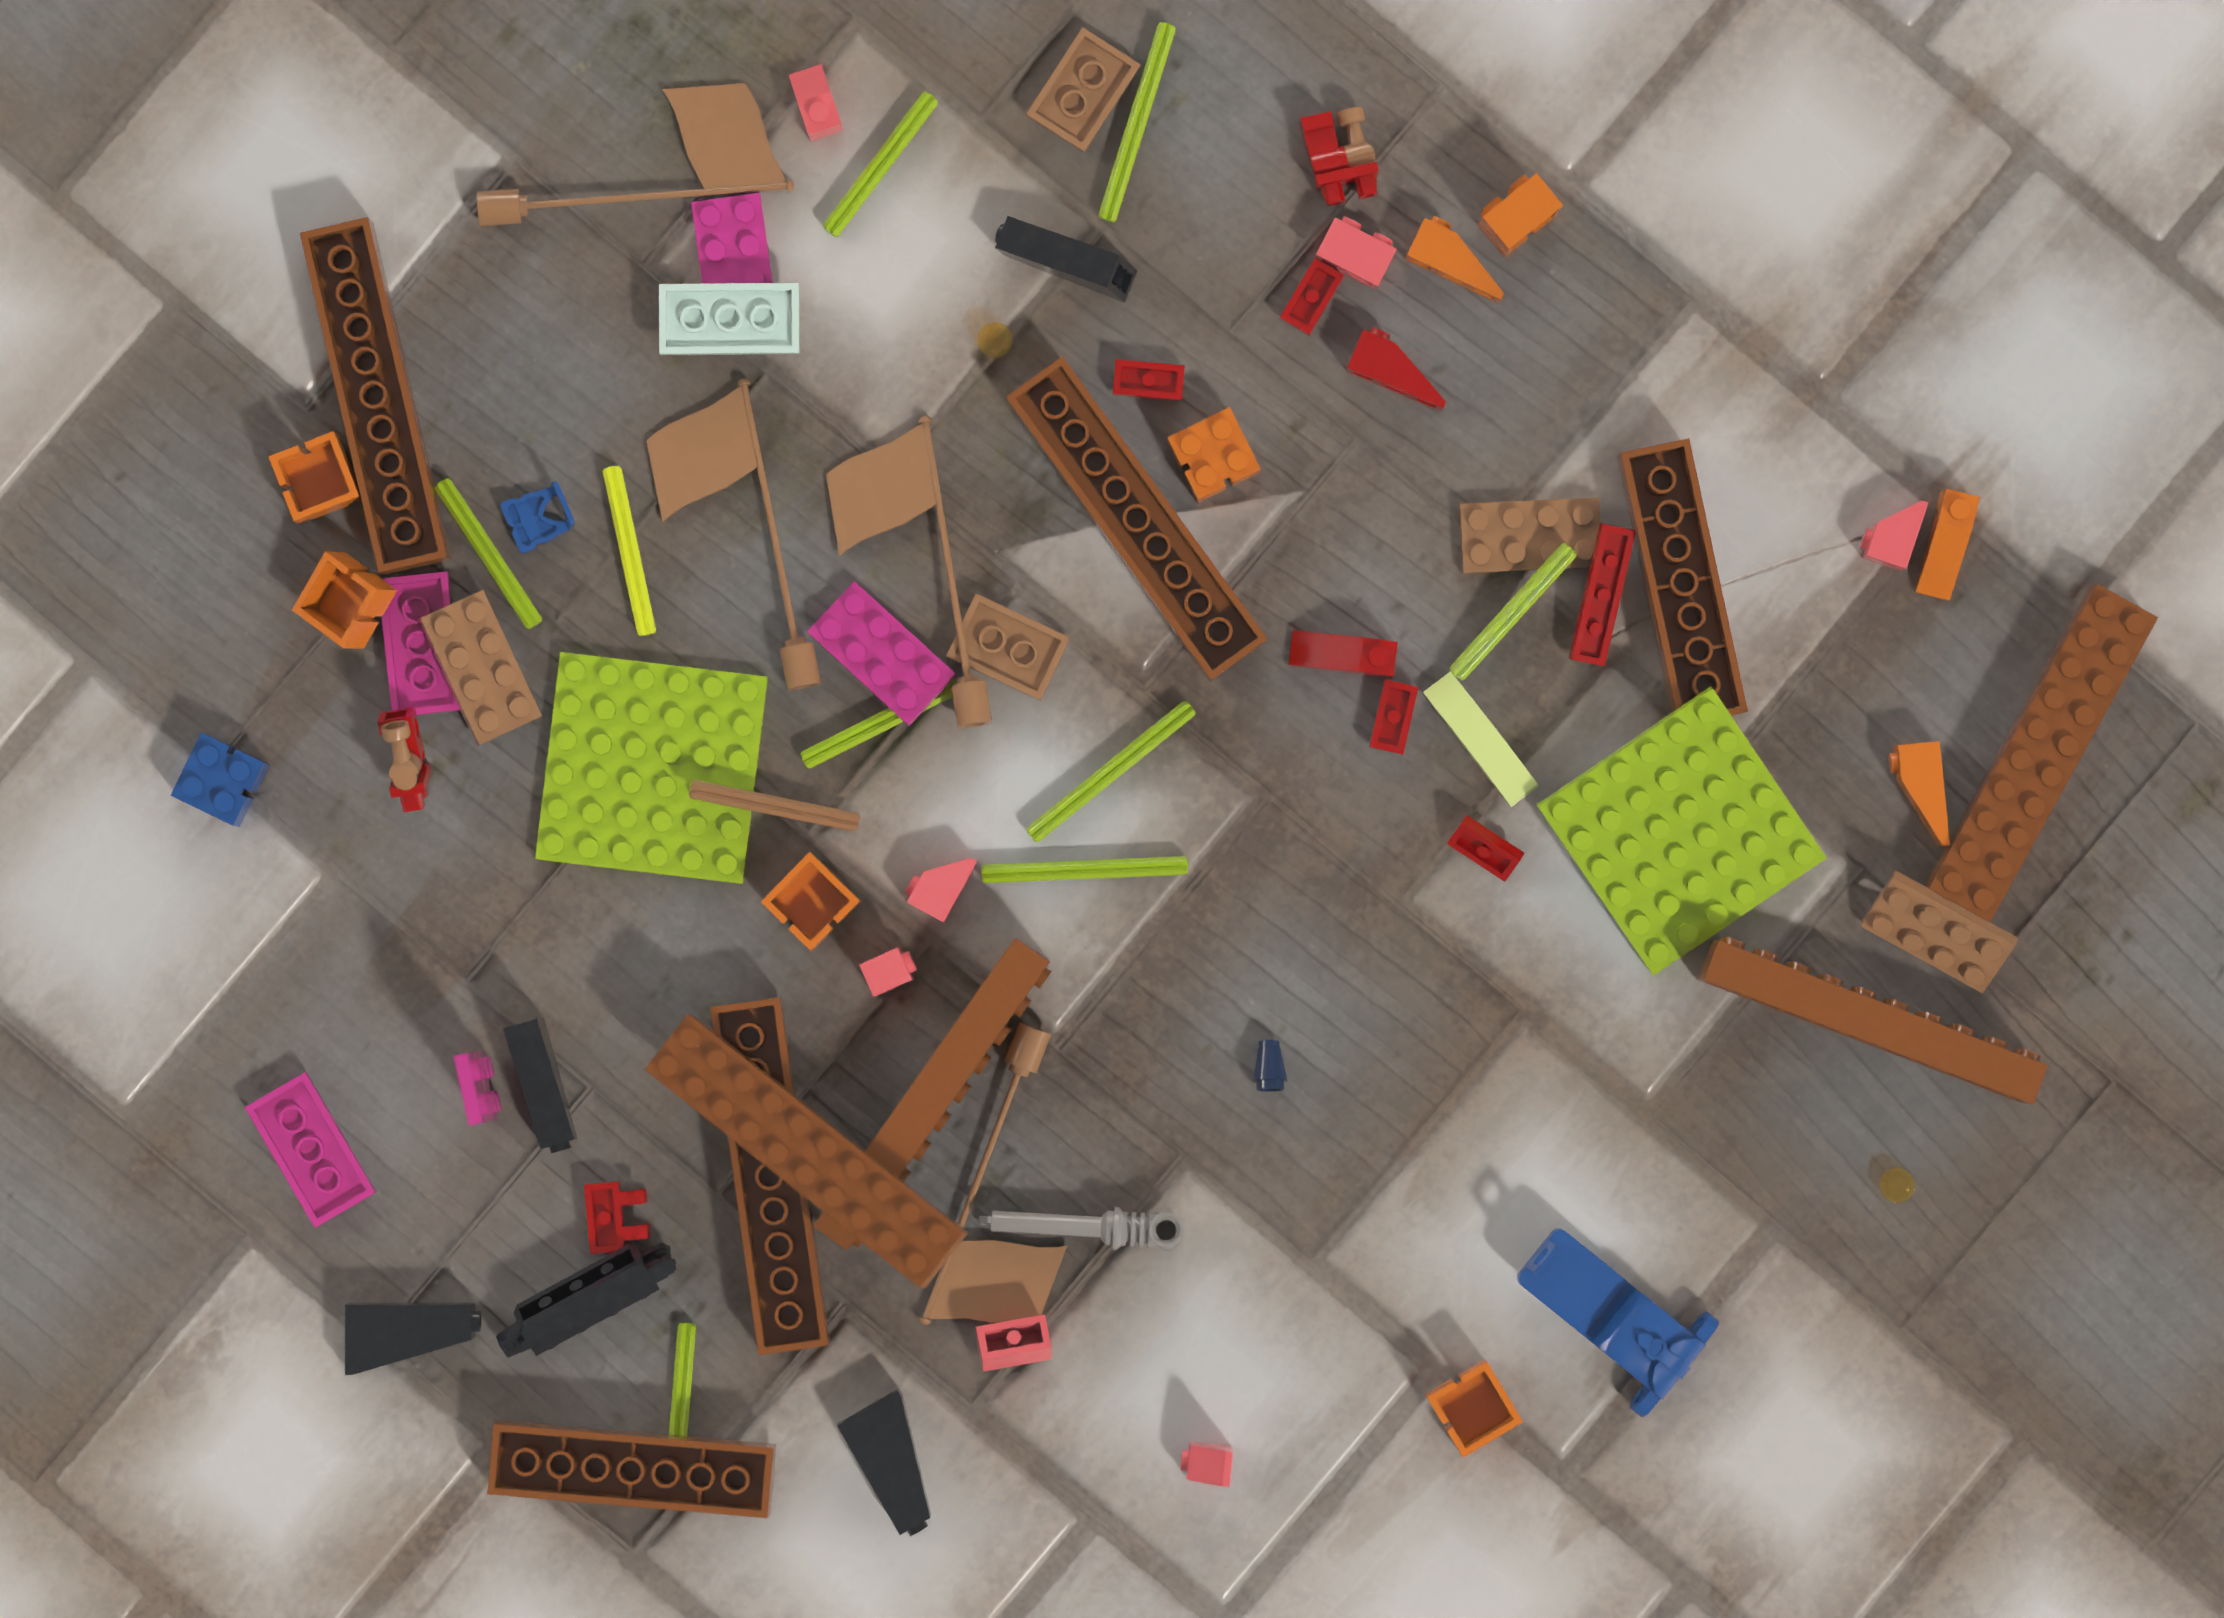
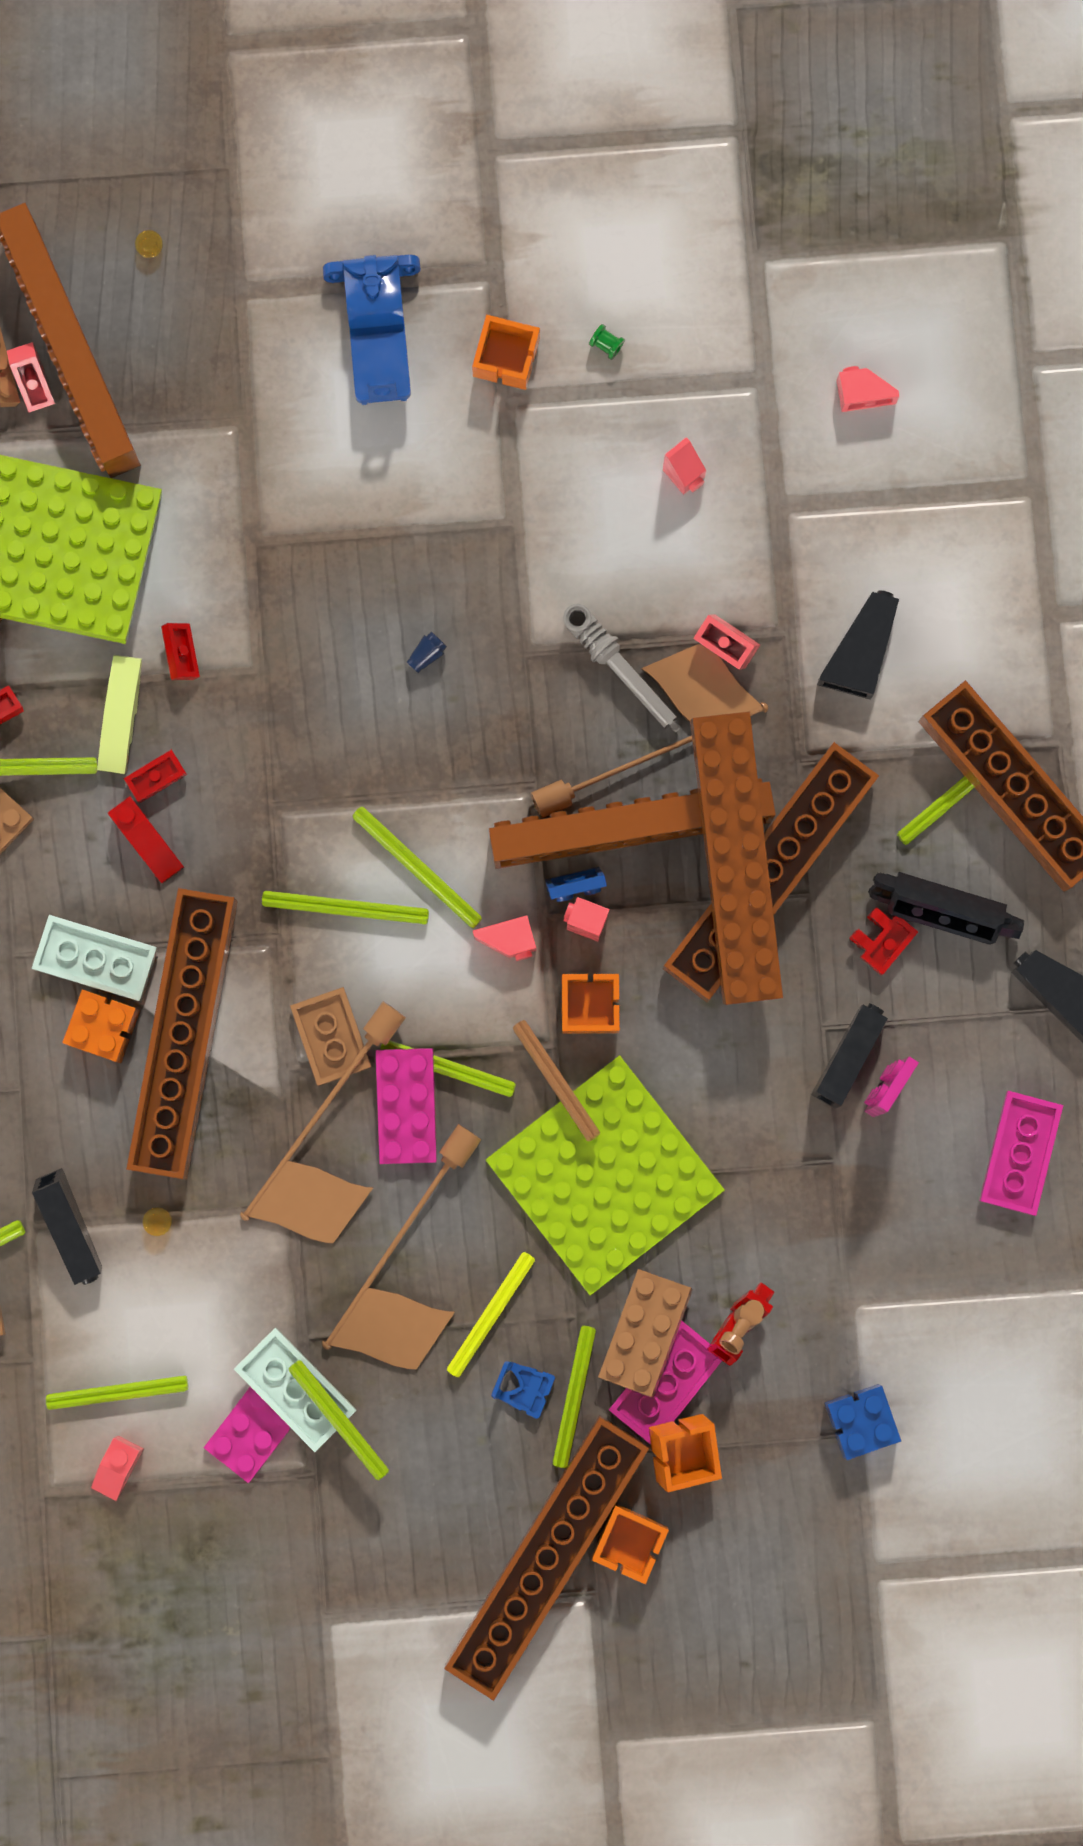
camera: 130 degrees left, 5 degrees down
(665, 330) = (338, 1420): none -> lime axle
(721, 140) = (195, 1500): medium nougat flag -> none
(929, 993) = (584, 881): none -> blue plate
(1148, 380) = (94, 1108): red plate -> none
(1281, 507) = (94, 958): none -> light aqua plate
(1396, 1510) = (606, 341): none -> green bush
(1874, 957) = (30, 377): none -> coral slope

